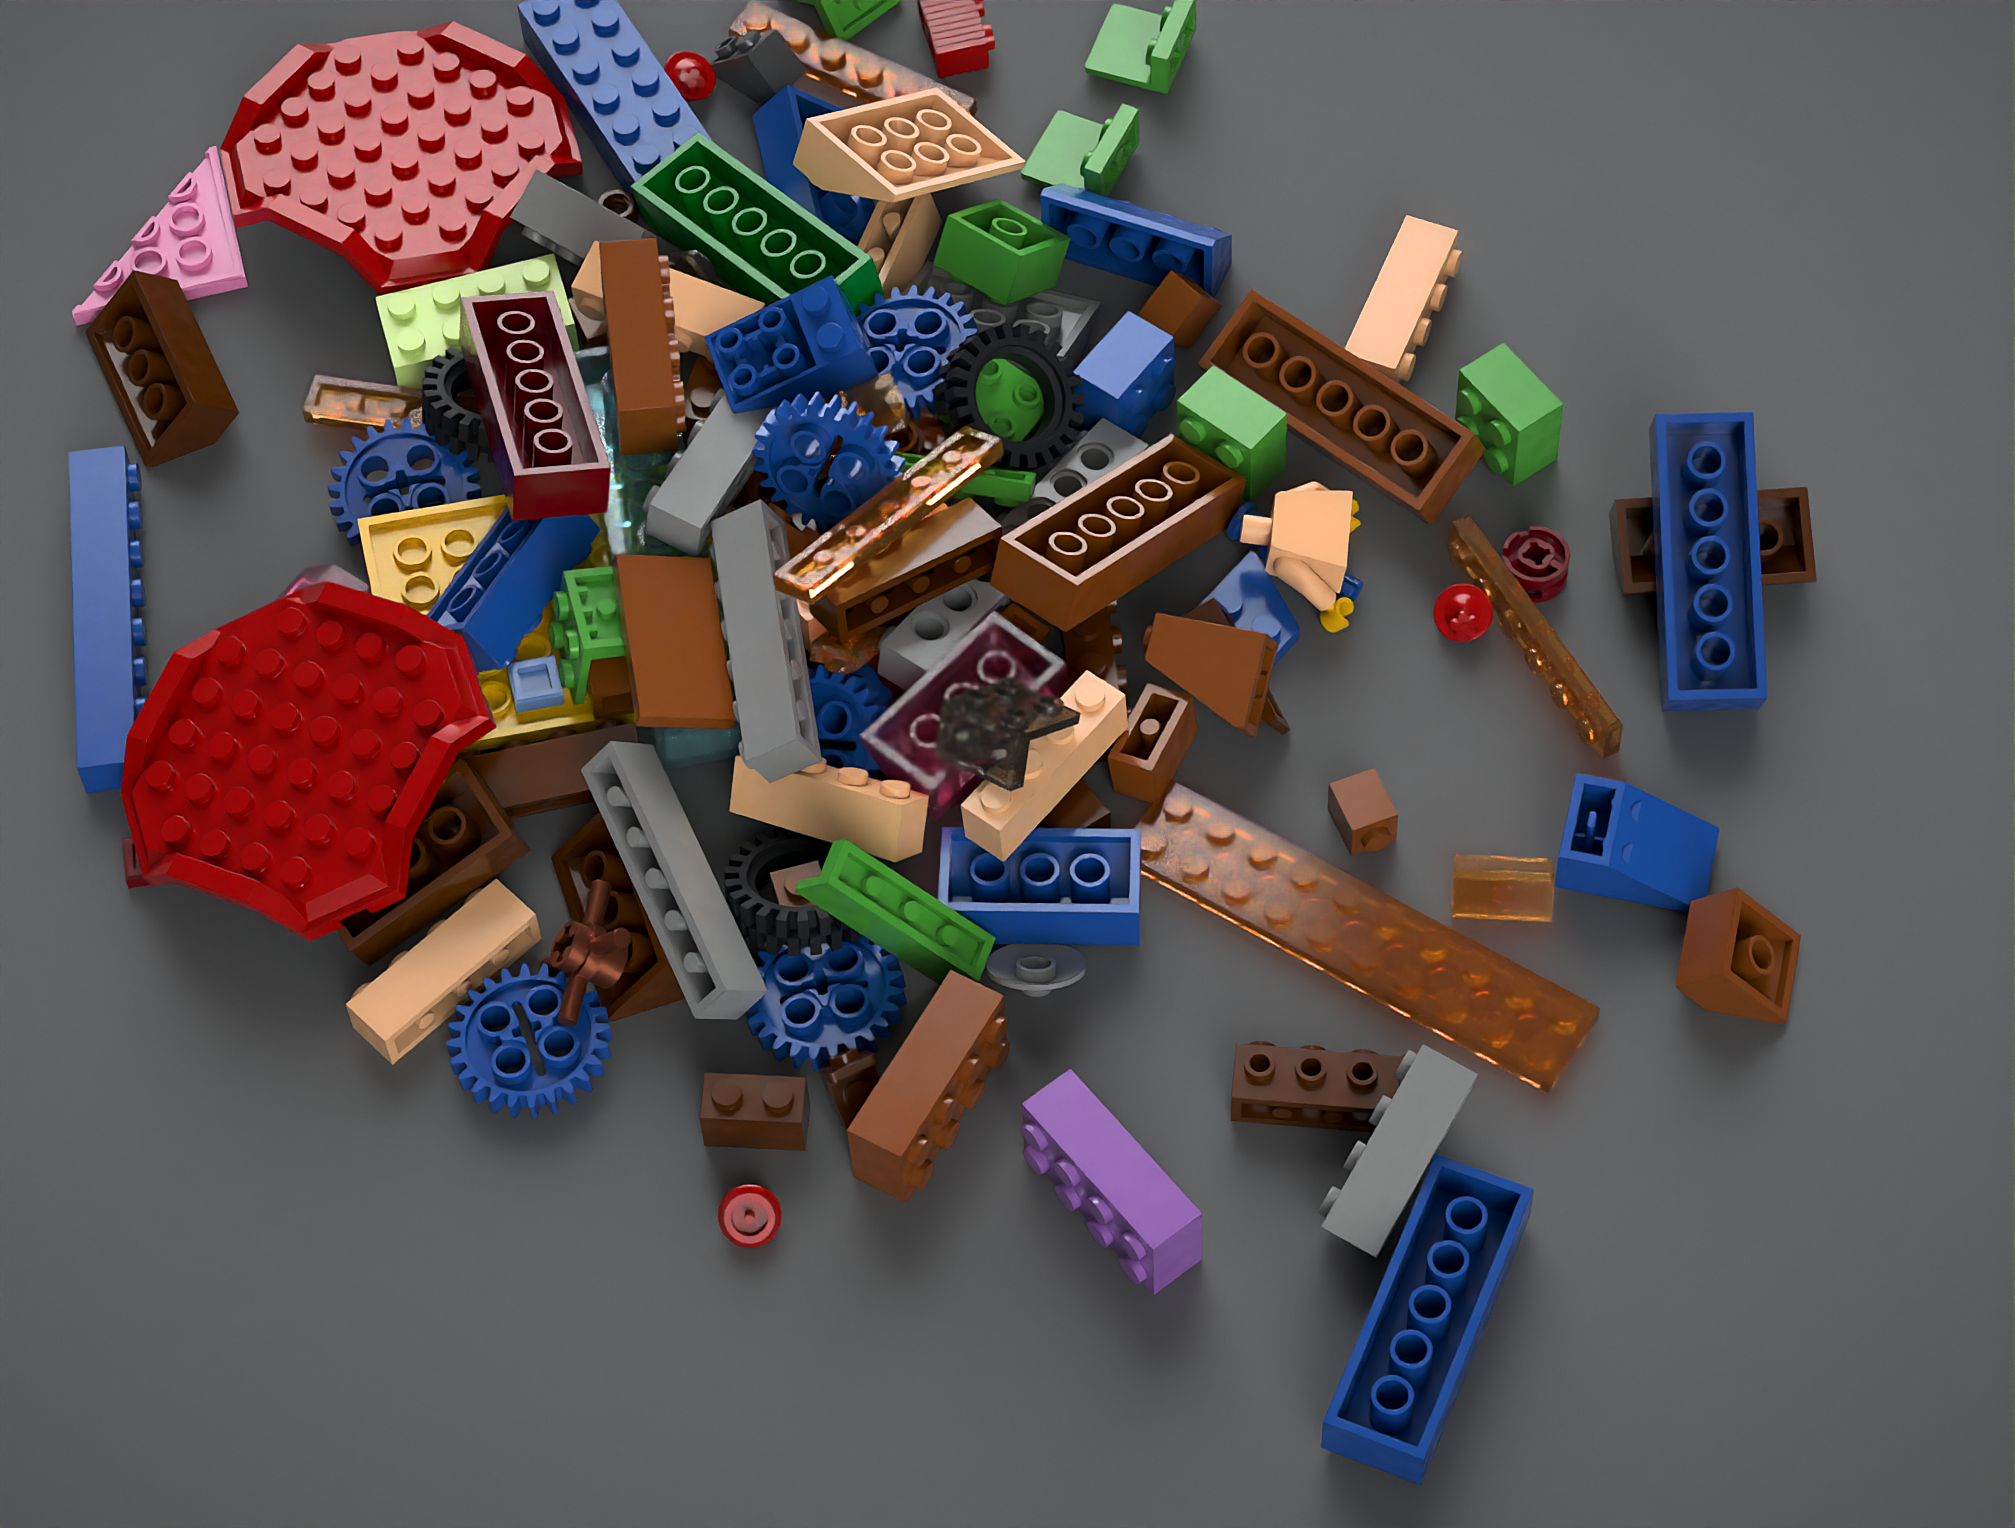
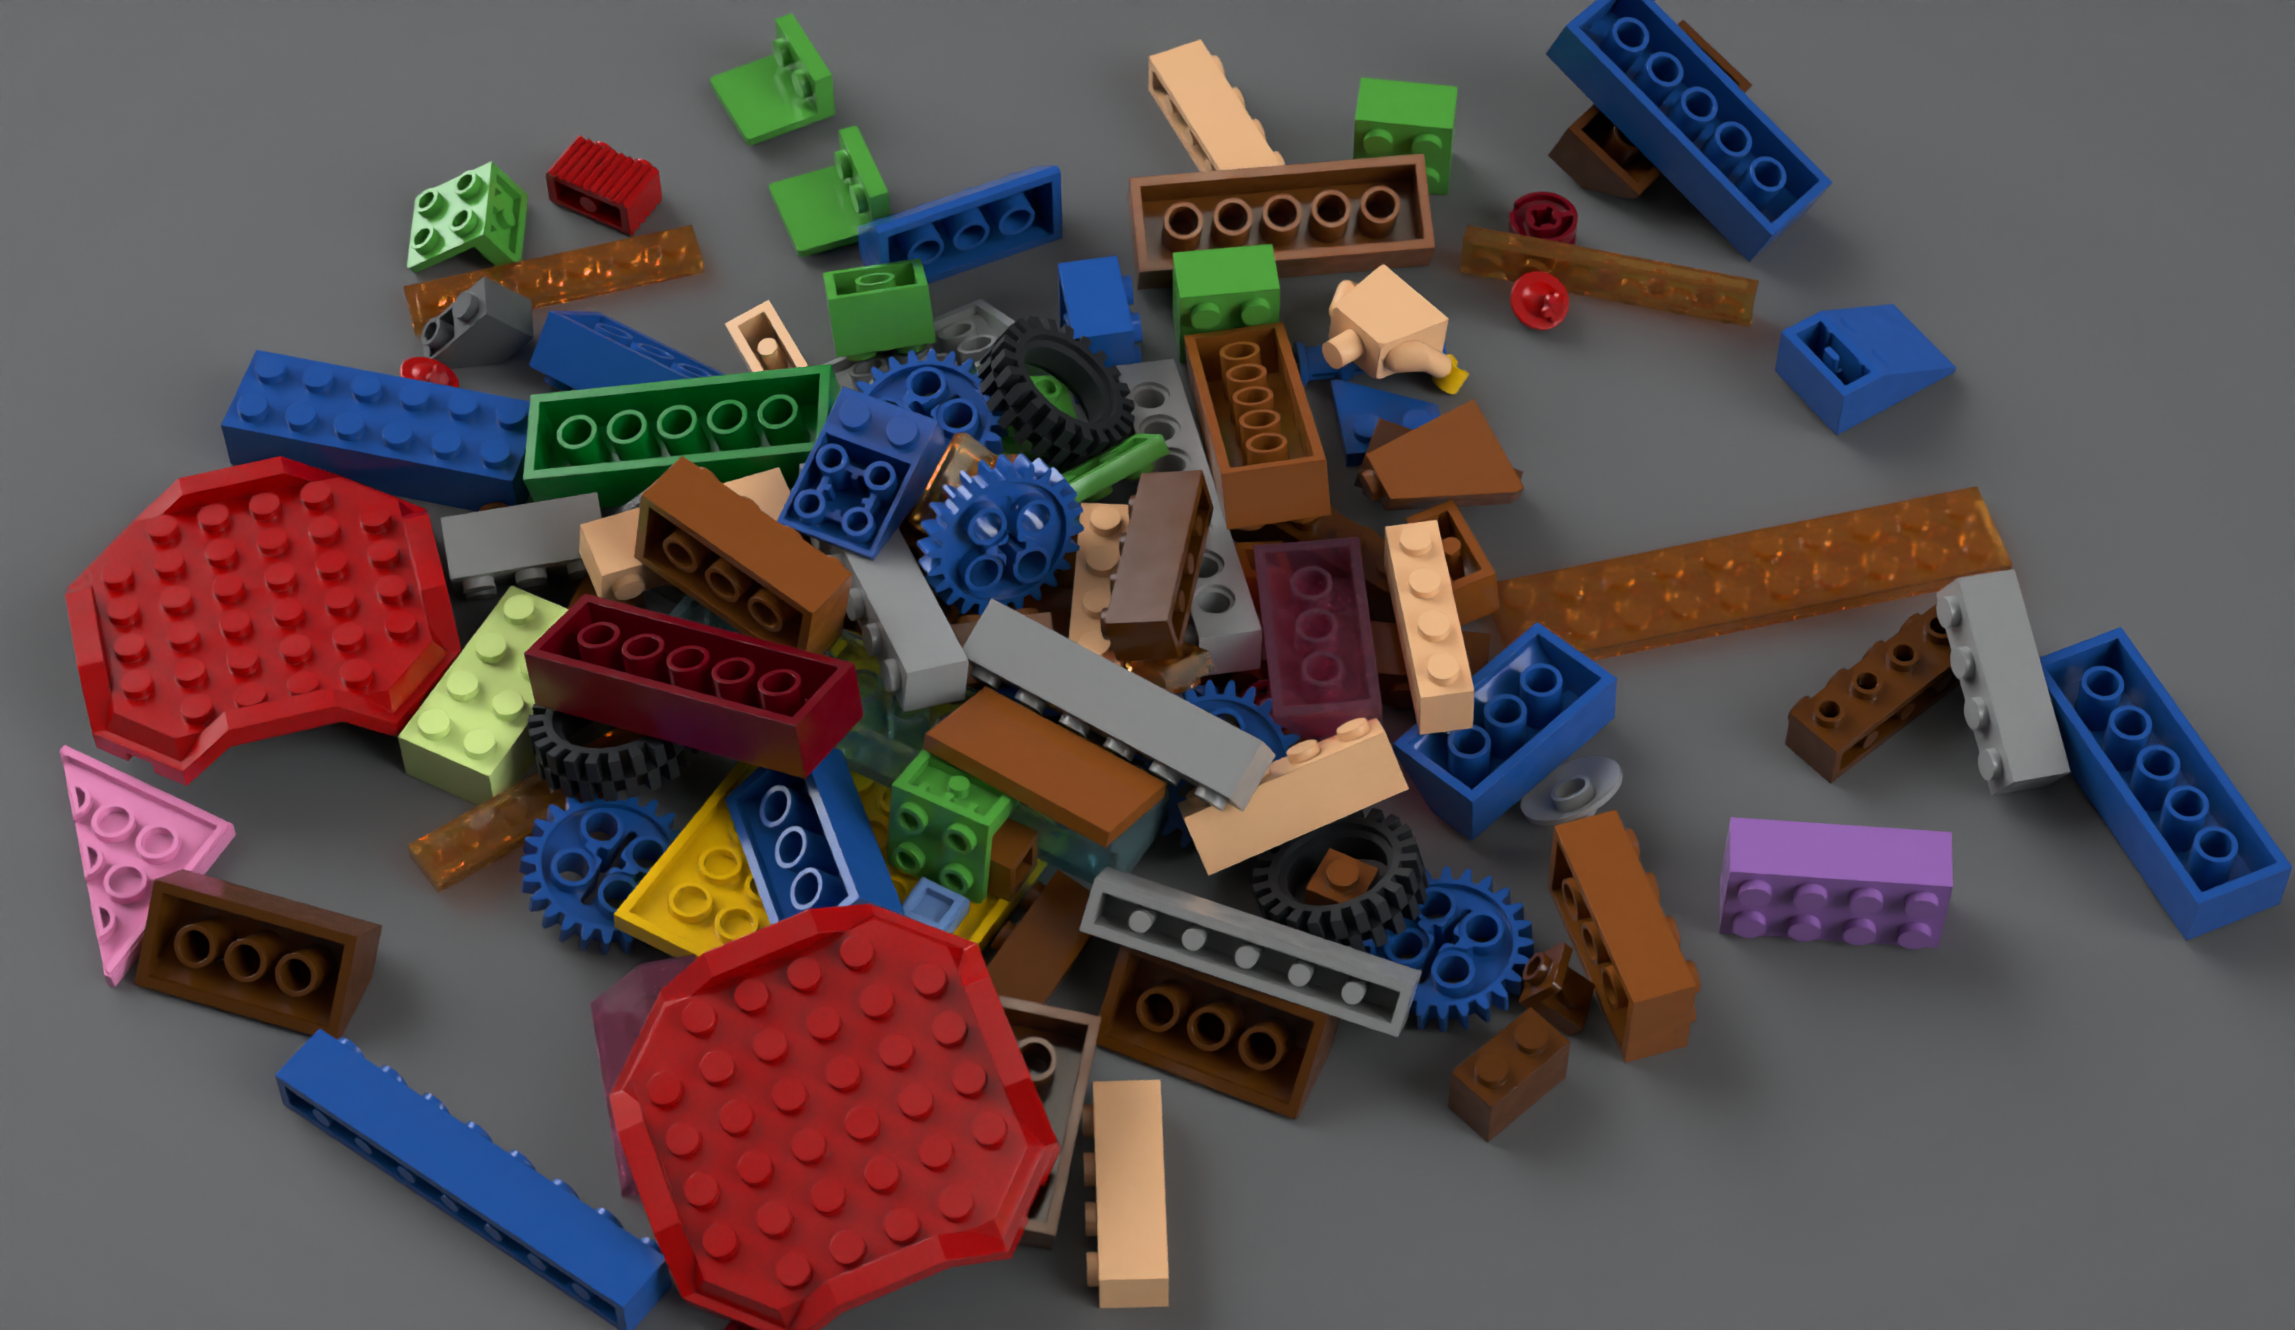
camera: 50 degrees left, 5 degrees down
(484, 1055) = (1248, 1221): blue gear -> none
(587, 953) = (1247, 1068): copper bar -> none
(749, 1215) = (1599, 1154): red hat -> none
(887, 515) = (1112, 529): clear orange plate -> none
(897, 914) = (1463, 826): bright green panel -> none
(900, 148) = (718, 288): light nougat slope -> none
(992, 729) = (1395, 614): clear smoke bracket -> none
(1180, 308) = (1060, 242): dark orange brick -> none
(1363, 812) = (1653, 491): dark orange brick -> none
(1502, 888) = (1809, 461): clear orange panel -> none
(1738, 958) = (2018, 377): dark orange slope -> none

